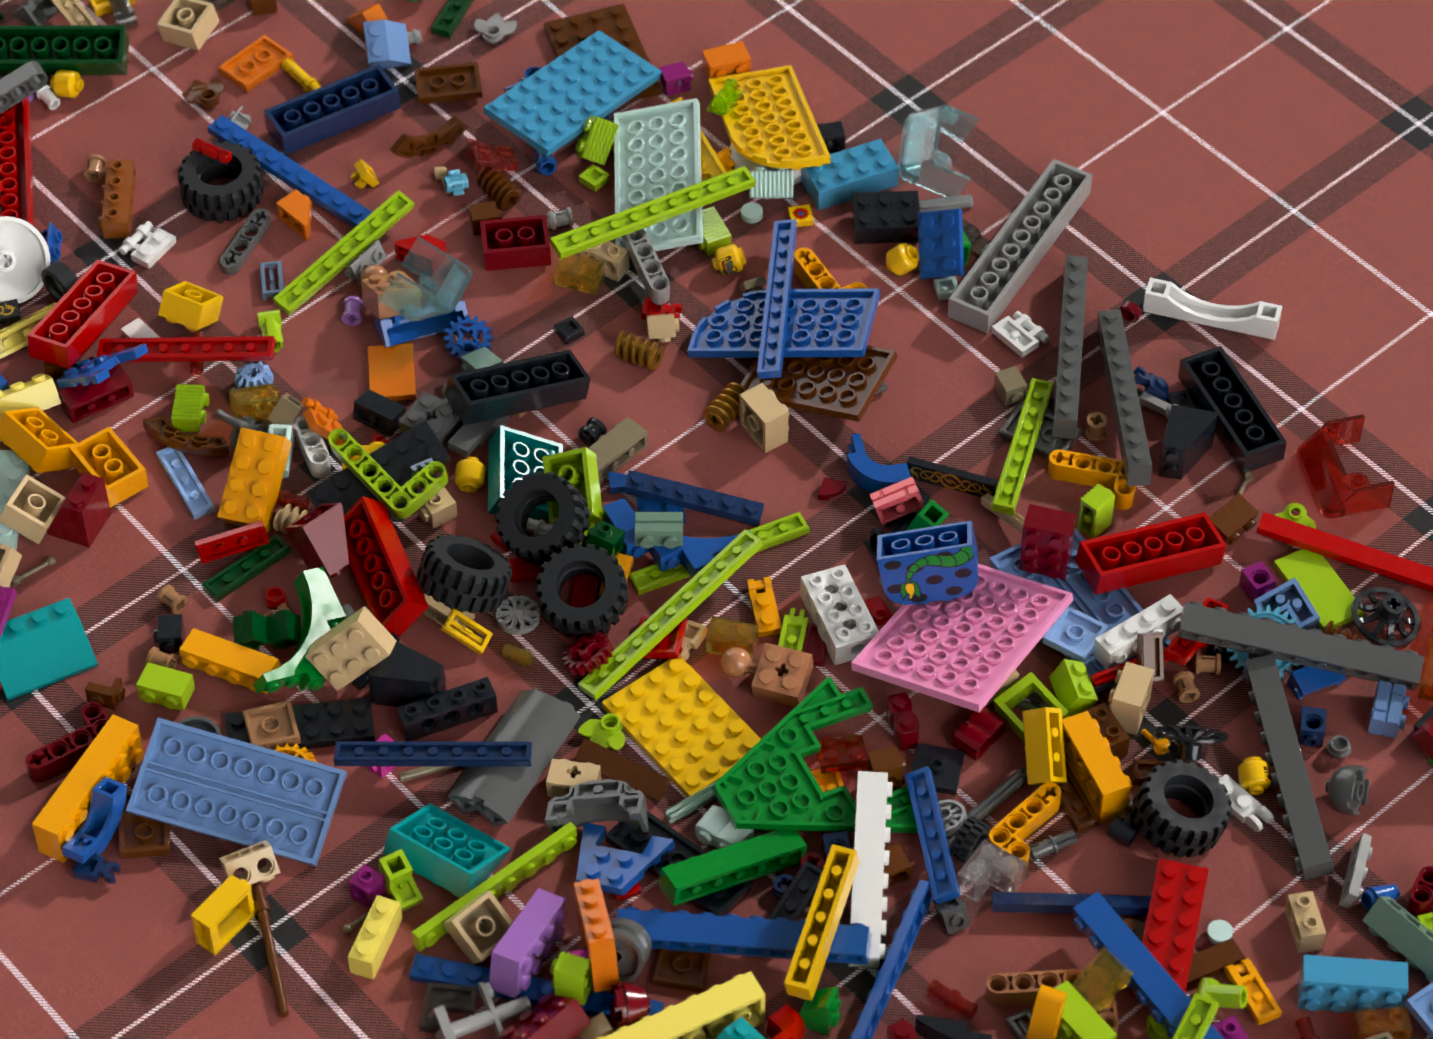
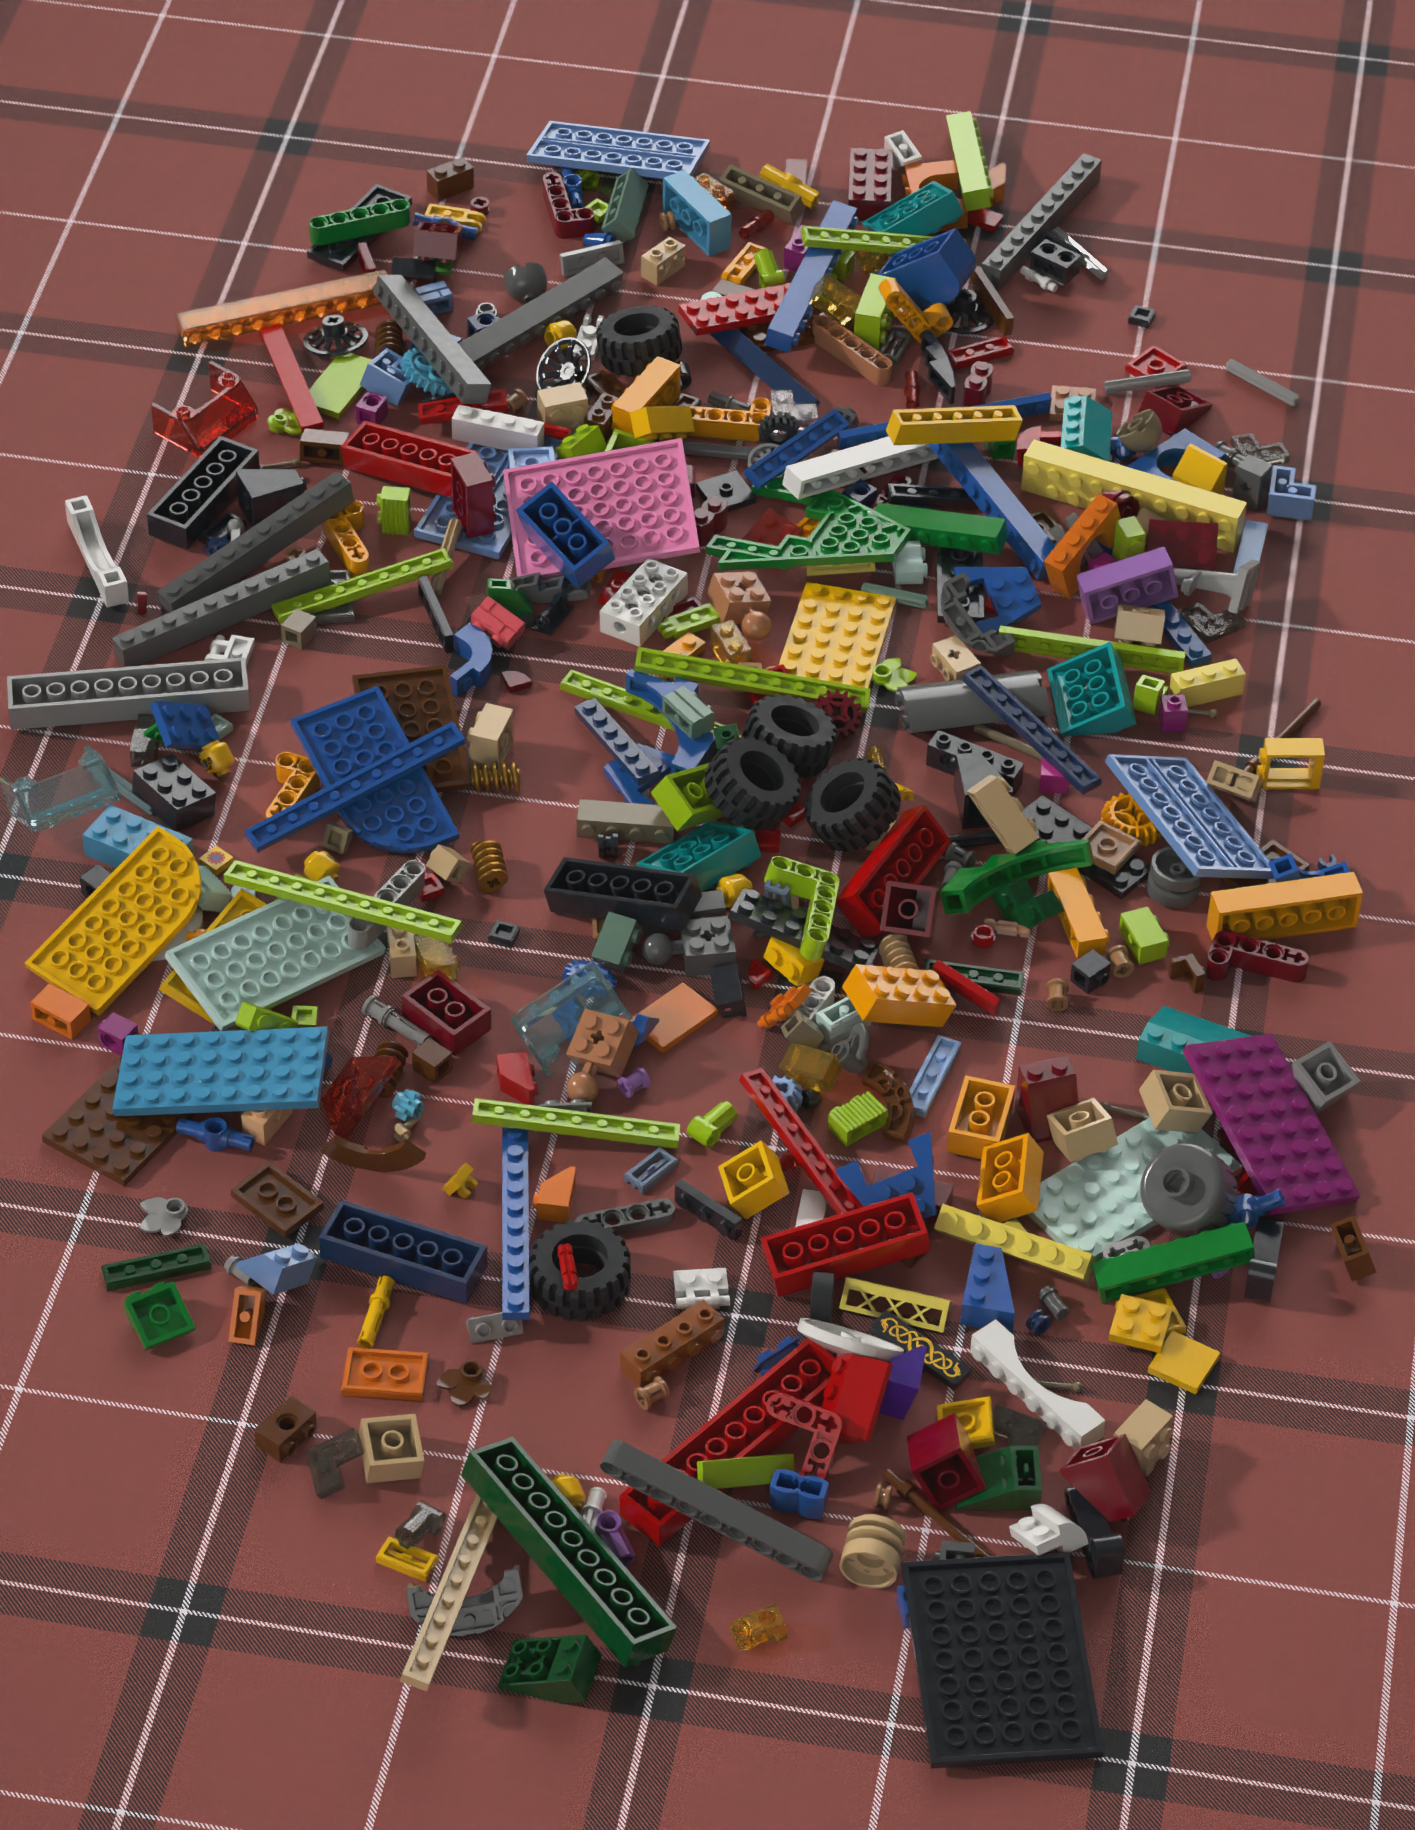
camera: 130 degrees left, 5 degrees down
(208, 279) = (708, 1210): none -> black plate
(623, 769) = (915, 645): reddish brown tile -> none
(725, 98) = (132, 959): clear neon green hinge -> none
(888, 761) = (769, 492): reddish brown brick -> none
(1151, 653) = (517, 410): tile -> none

